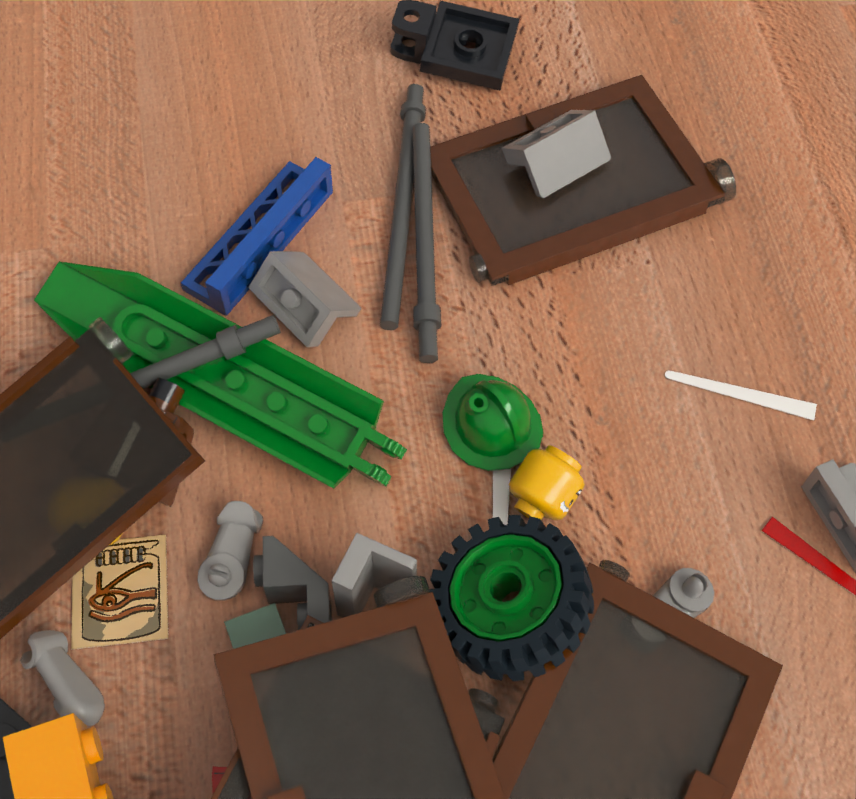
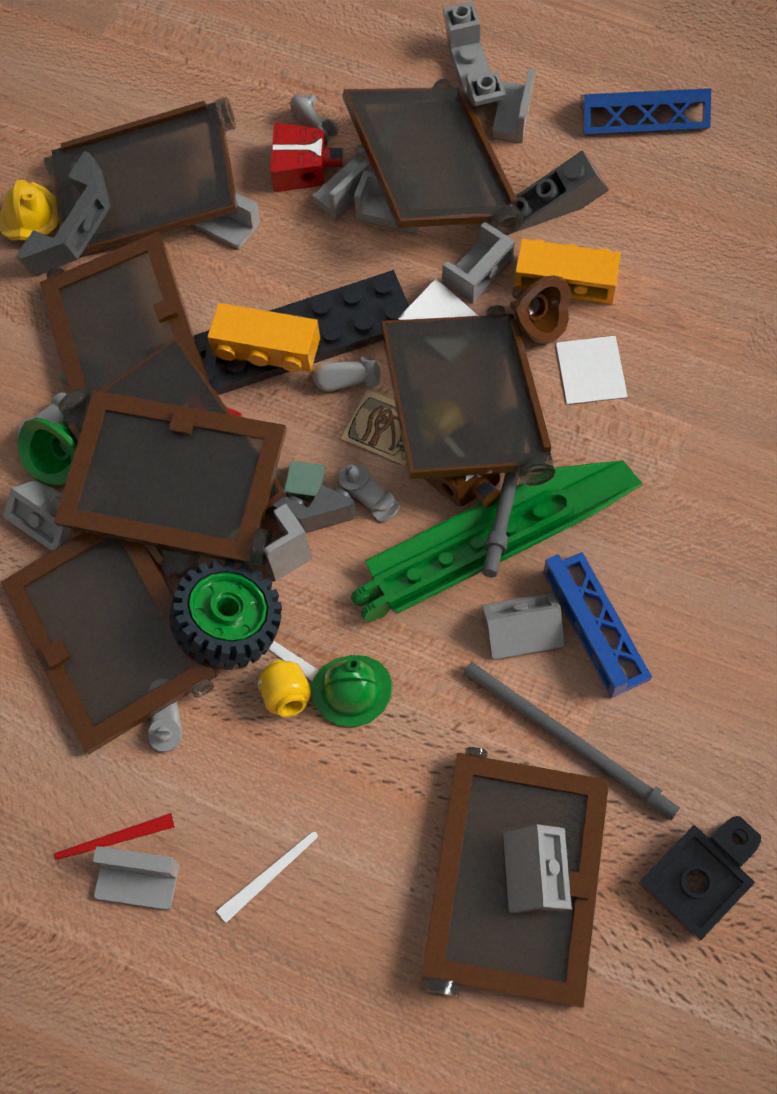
camera: 130 degrees right, 5 degrees up
(426, 312) = (458, 695): dark grey bar -> none

